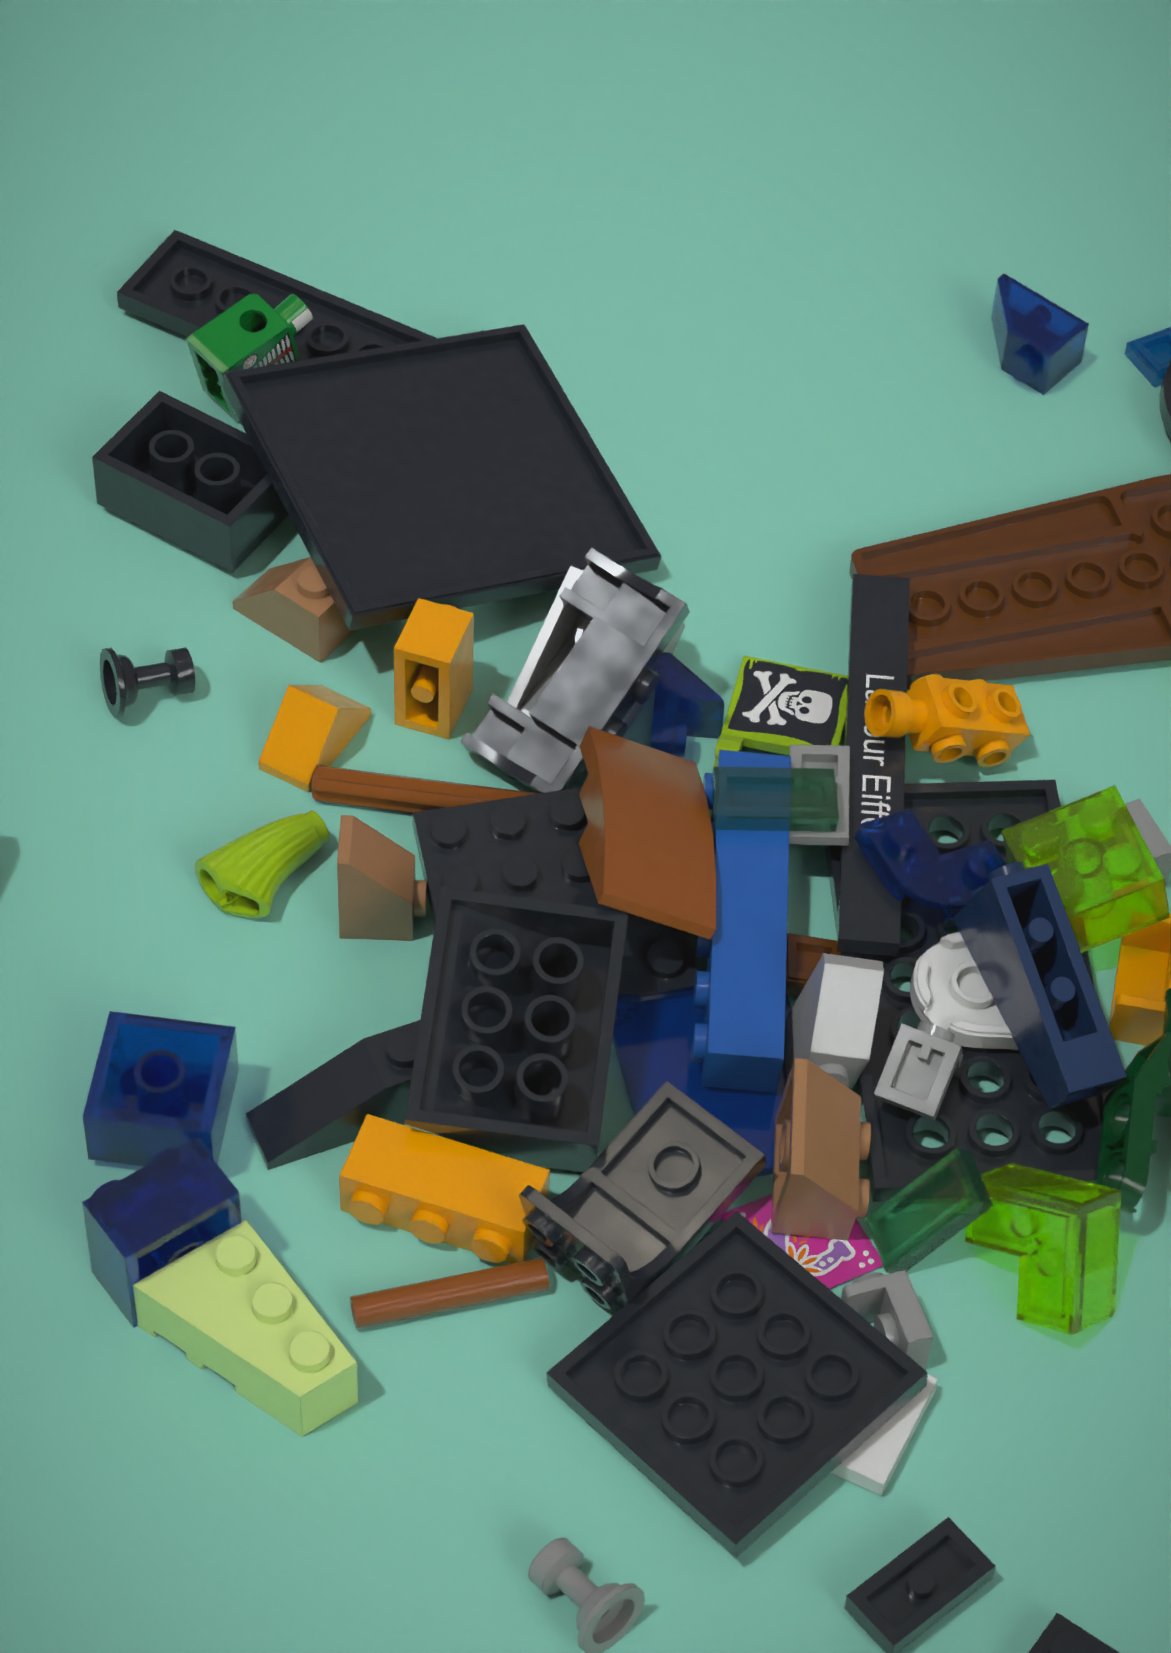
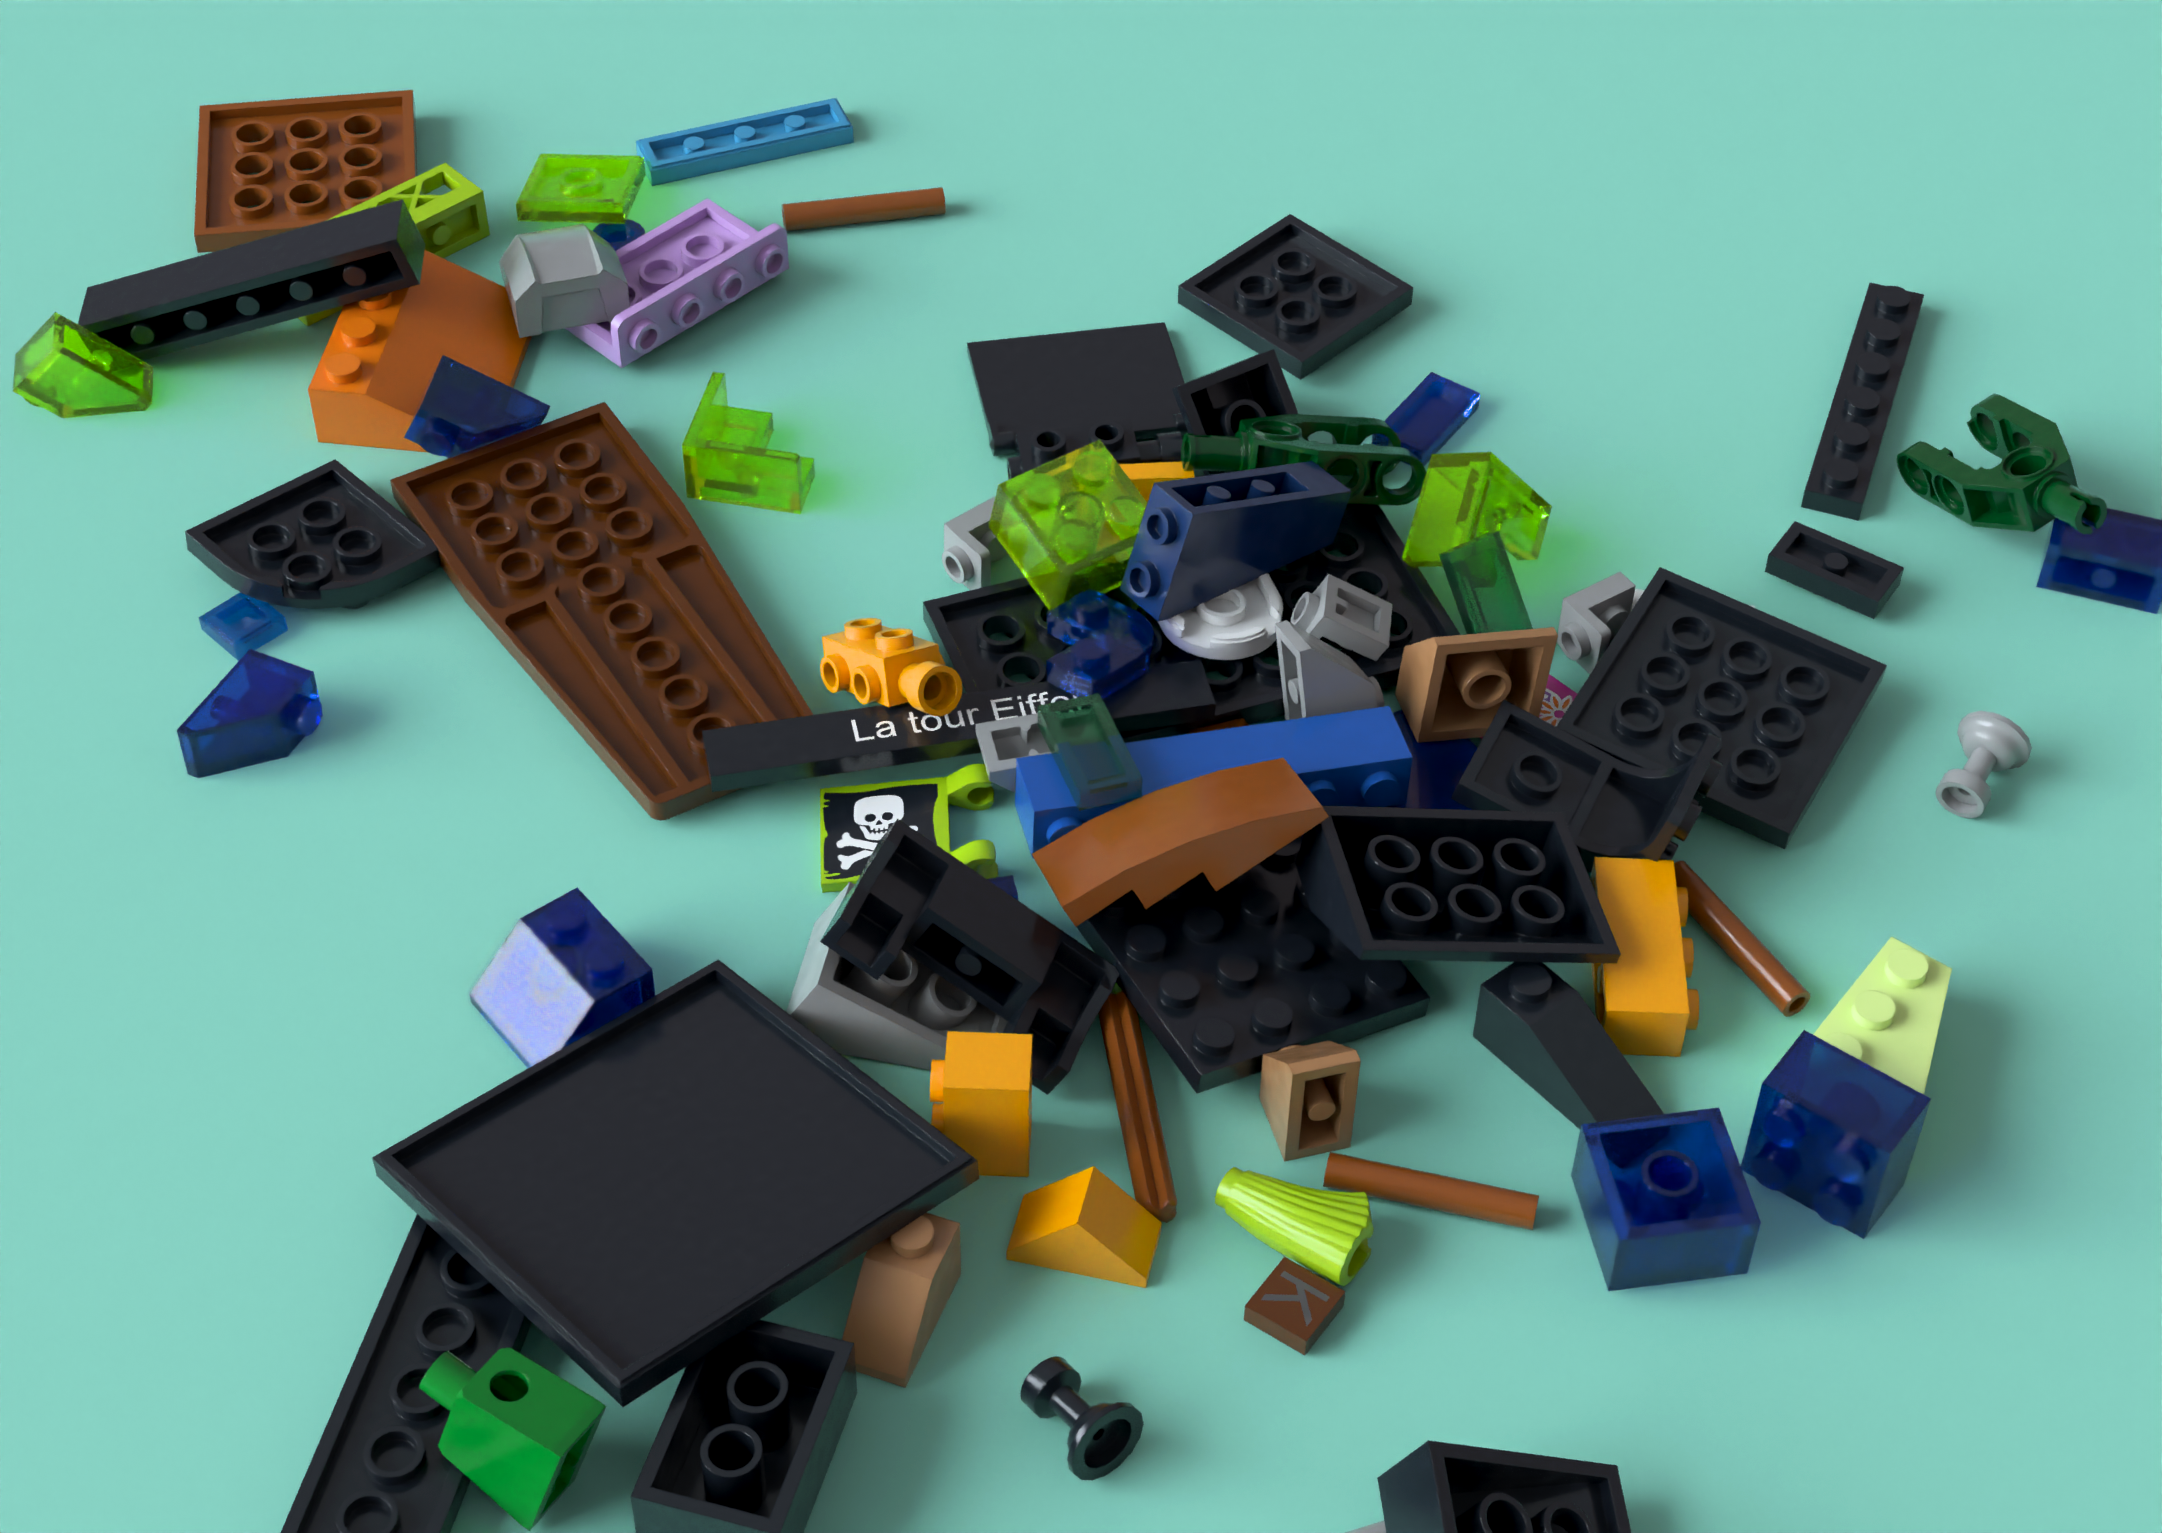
camera: 105 degrees left, 5 degrees down
(187, 840) = (1294, 1306): none -> reddish brown tile
(265, 961) = (1431, 1191): none -> dark orange piece
(680, 478) = (560, 978): none -> clear blue slope

